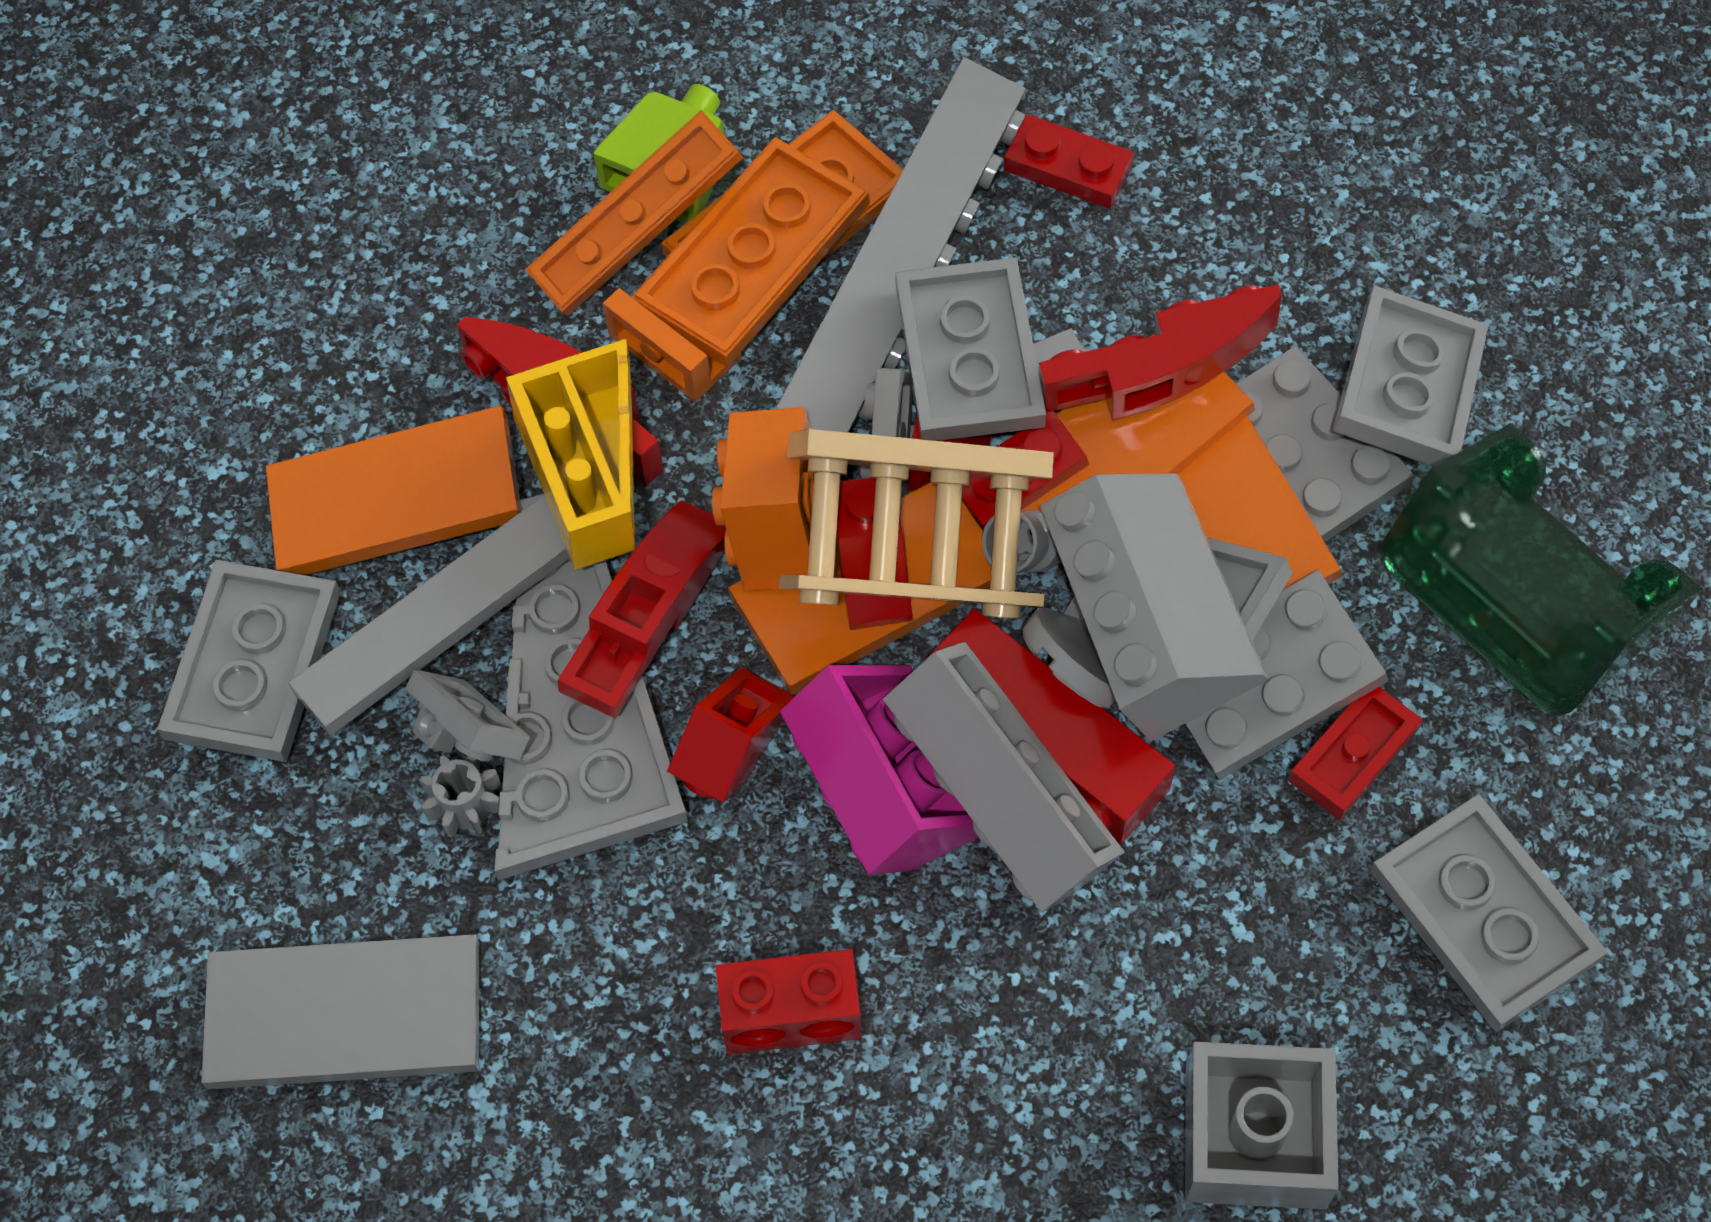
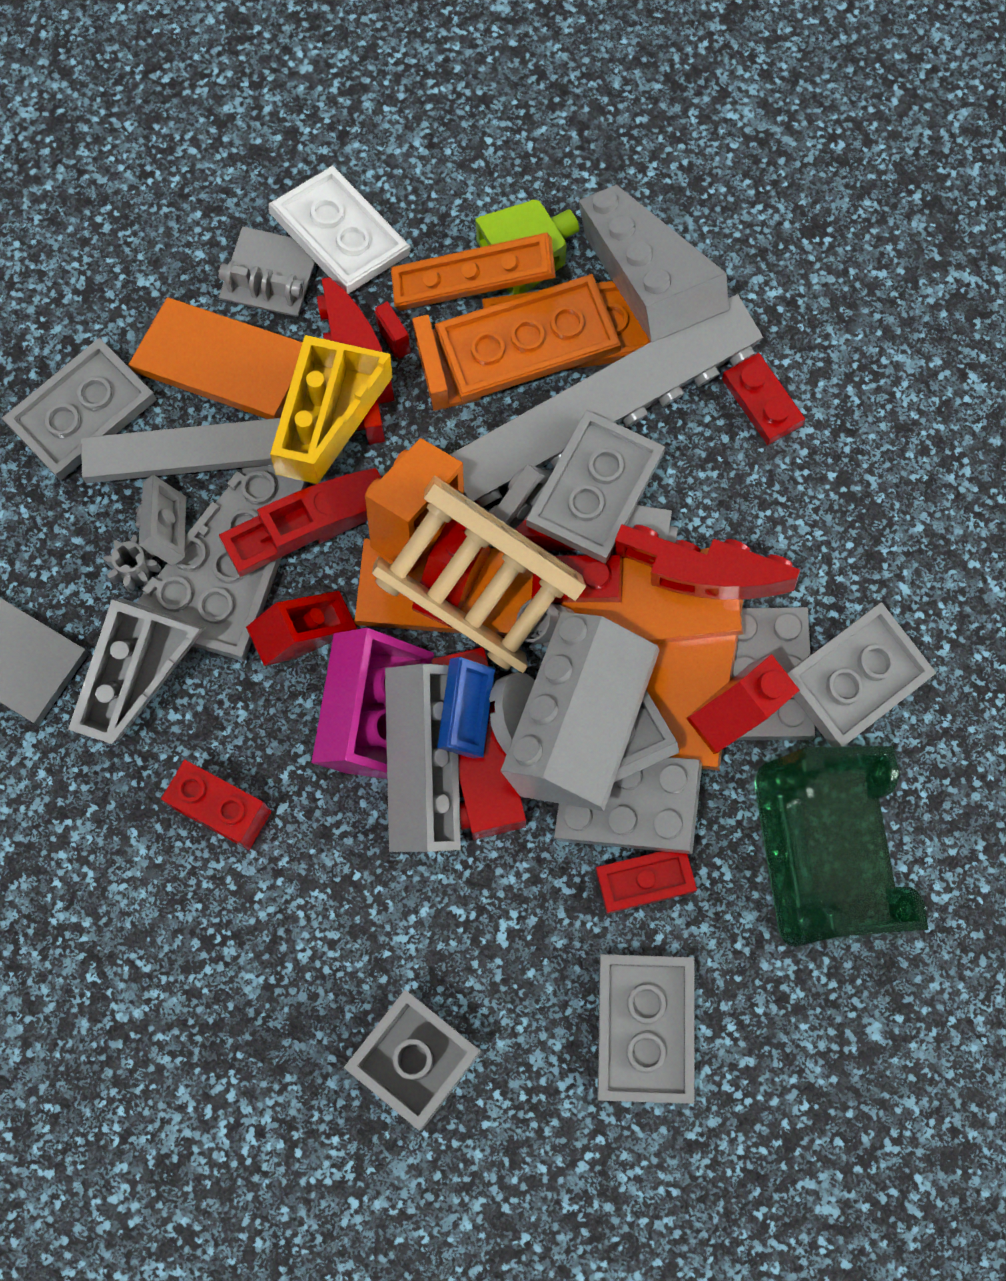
camera: 35 degrees right, 10 degrees up
(374, 364) = (267, 272): none -> light grey hinge
(425, 265) = (339, 229): none -> white tile
(560, 904) = (129, 666): none -> light grey wedge
(579, 328) = (392, 330): none -> red tile
(841, 81) = (652, 265): none -> light grey wedge
(1014, 680) = (466, 708): none -> blue tile
(1319, 475) = (743, 703): none -> red slope

